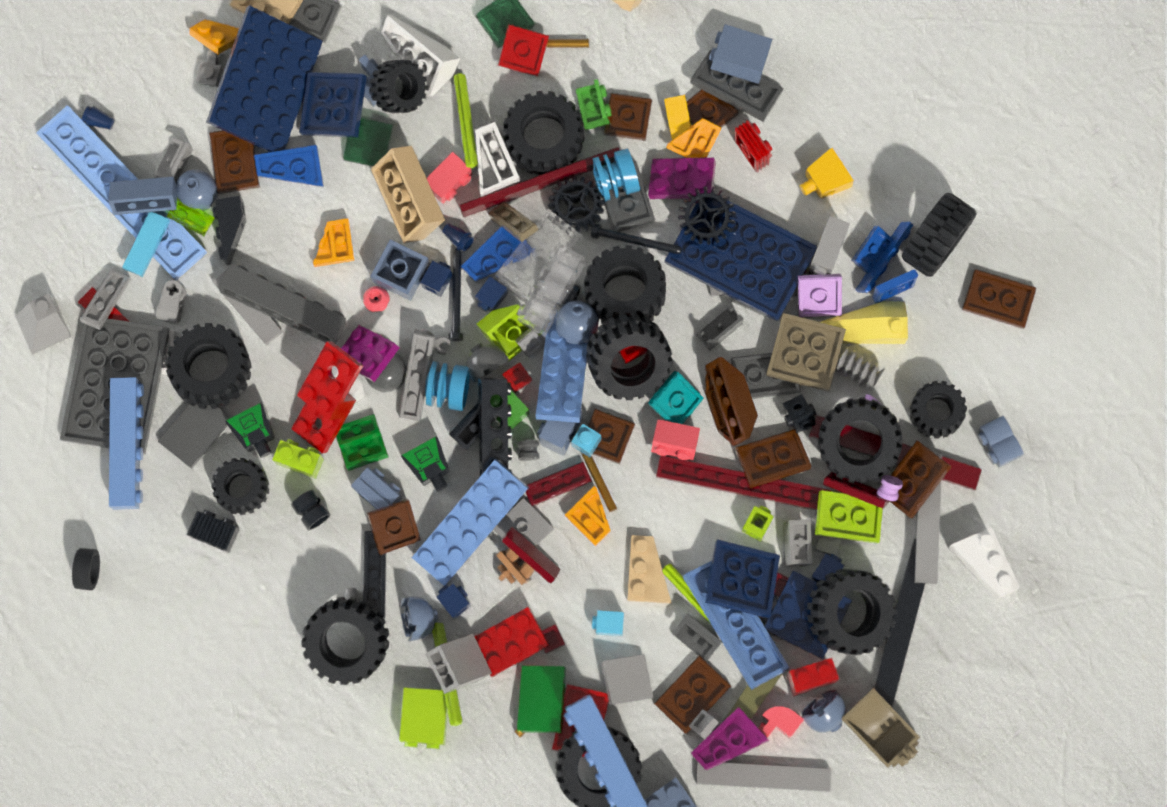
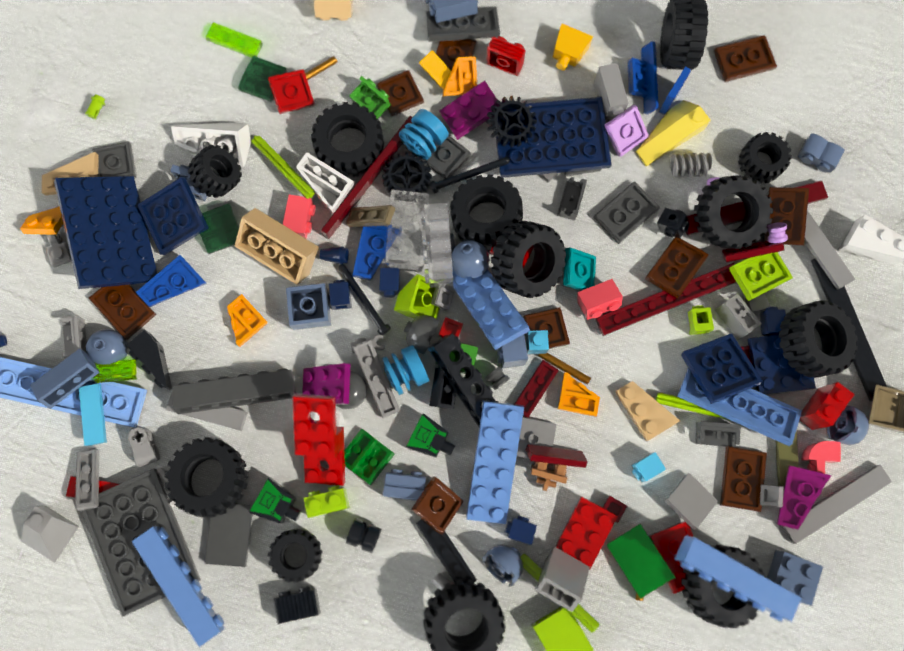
camera: 45 degrees left, 0 degrees up
(376, 305) = (306, 346): coral plate -> none
(729, 401) = (619, 246): reddish brown wedge -> none
(806, 352) = (646, 176): dark tan plate -> none

